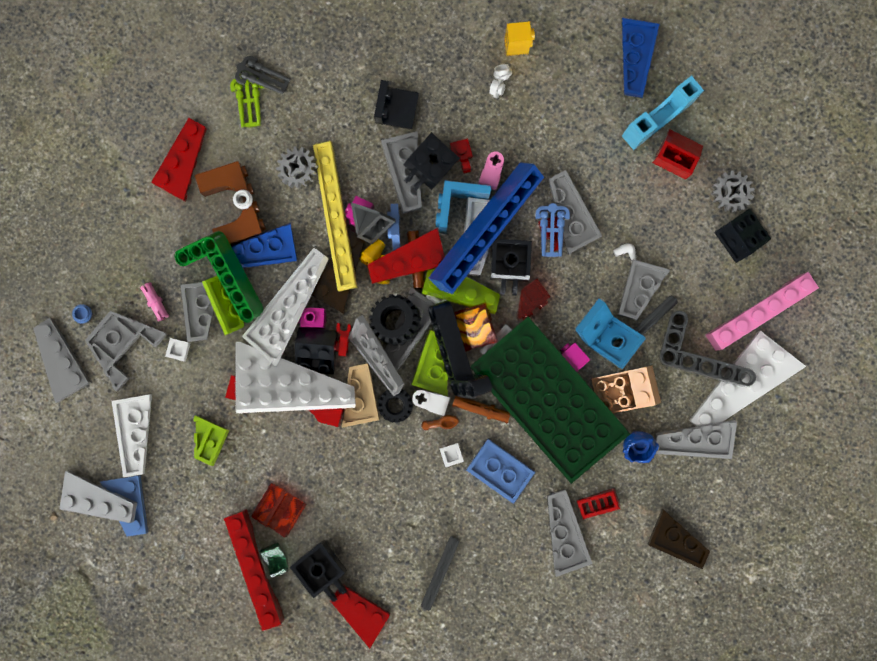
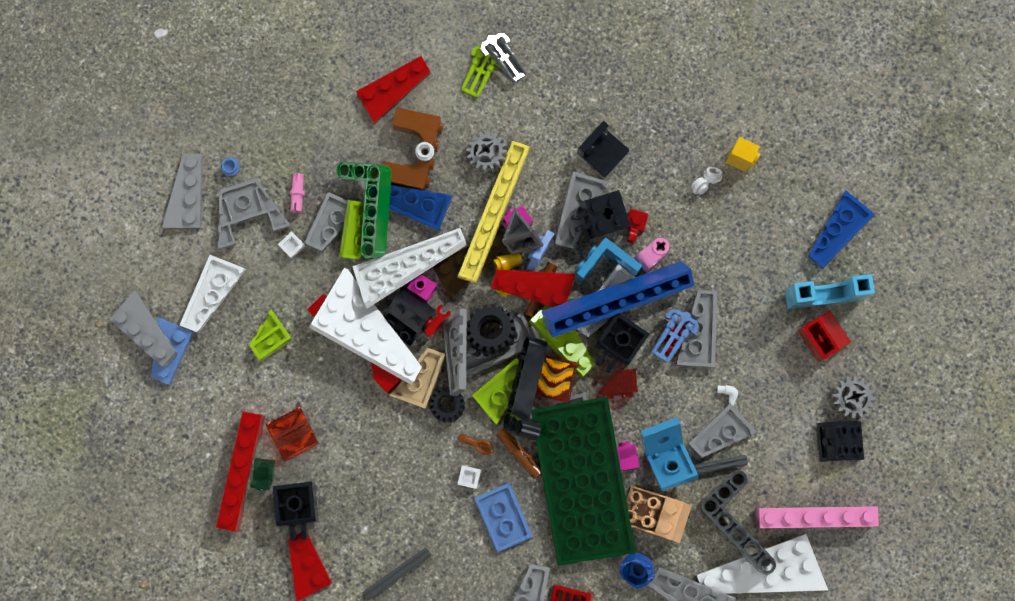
camera: 30 degrees right, 5 degrees down
(434, 402) = (482, 422): white piece -> none

